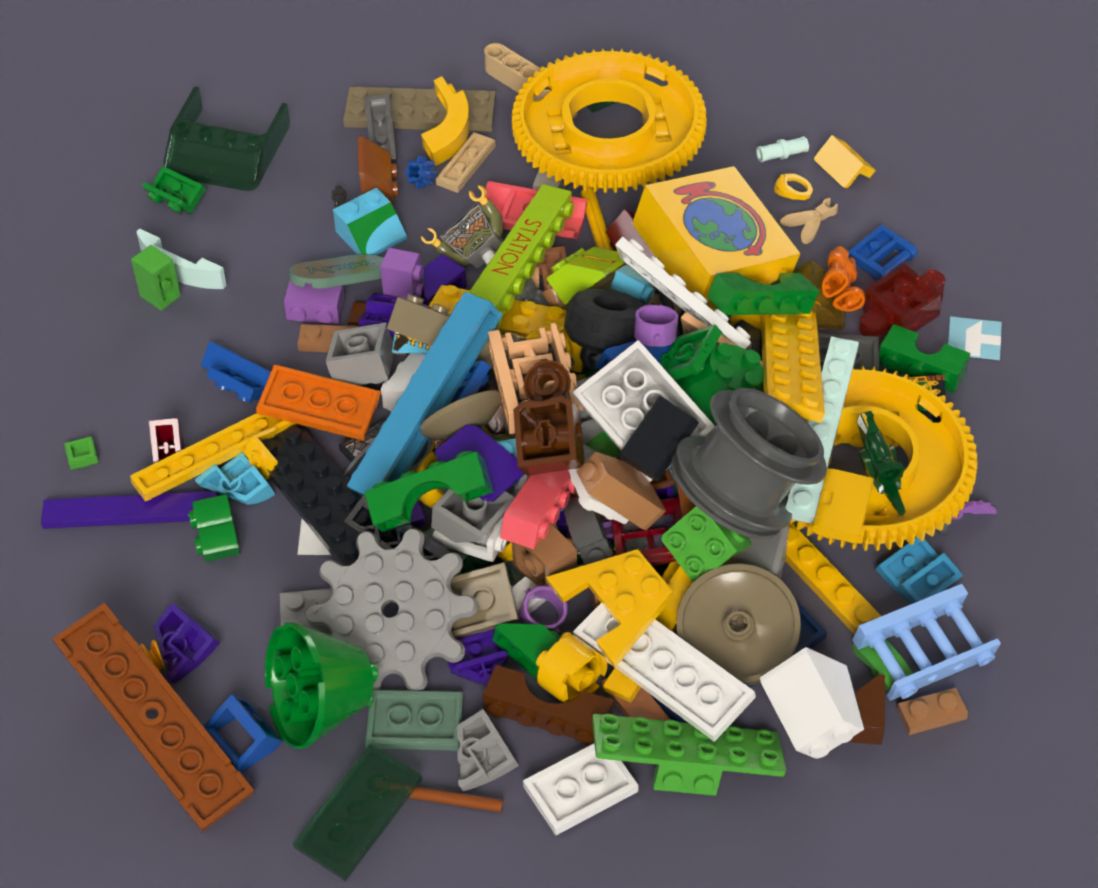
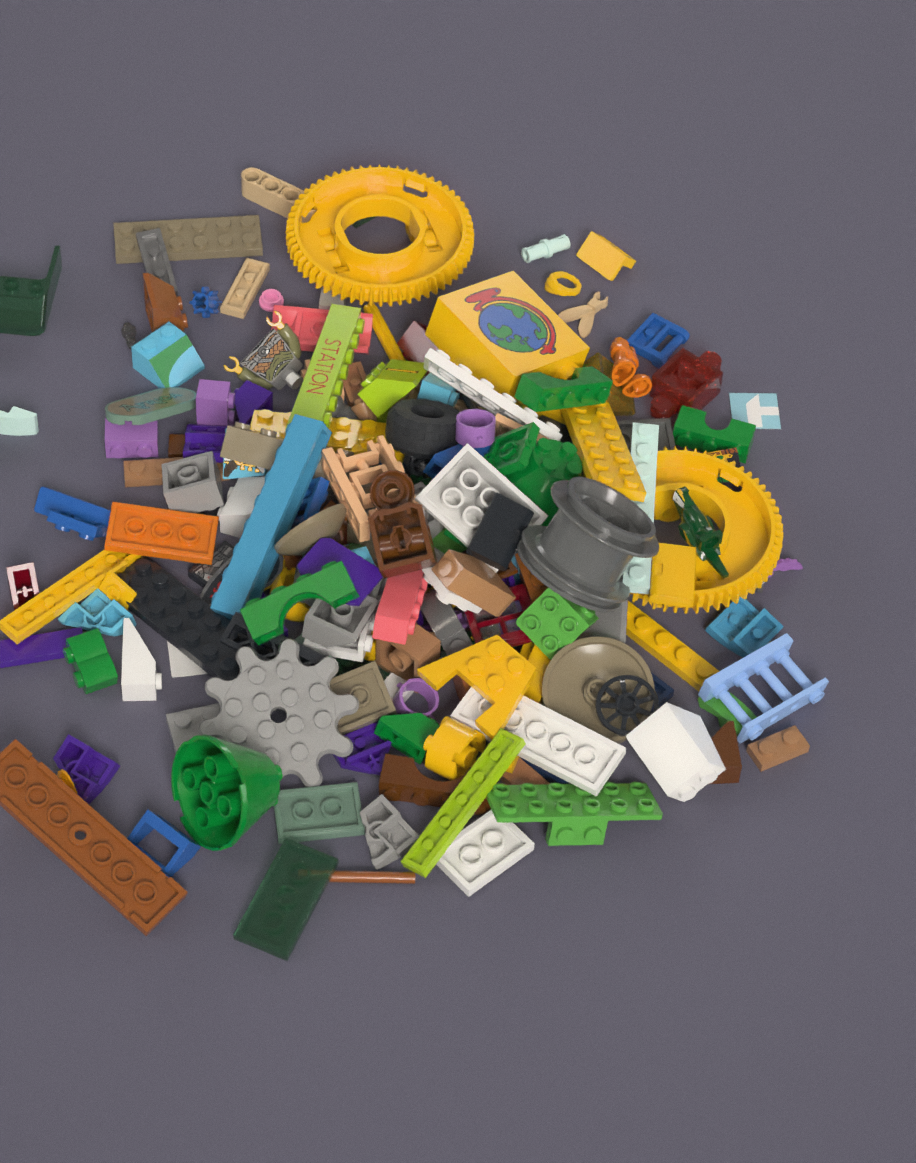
camera: 15 degrees left, 0 degrees up
(261, 545) = (139, 672): none -> white slope
(449, 136) = (225, 265): yellow arch -> none
(488, 173) = (270, 298): none -> bright pink plate
(566, 730) = (463, 803): none -> lime tile
(765, 642) = (626, 704): none -> black wheel

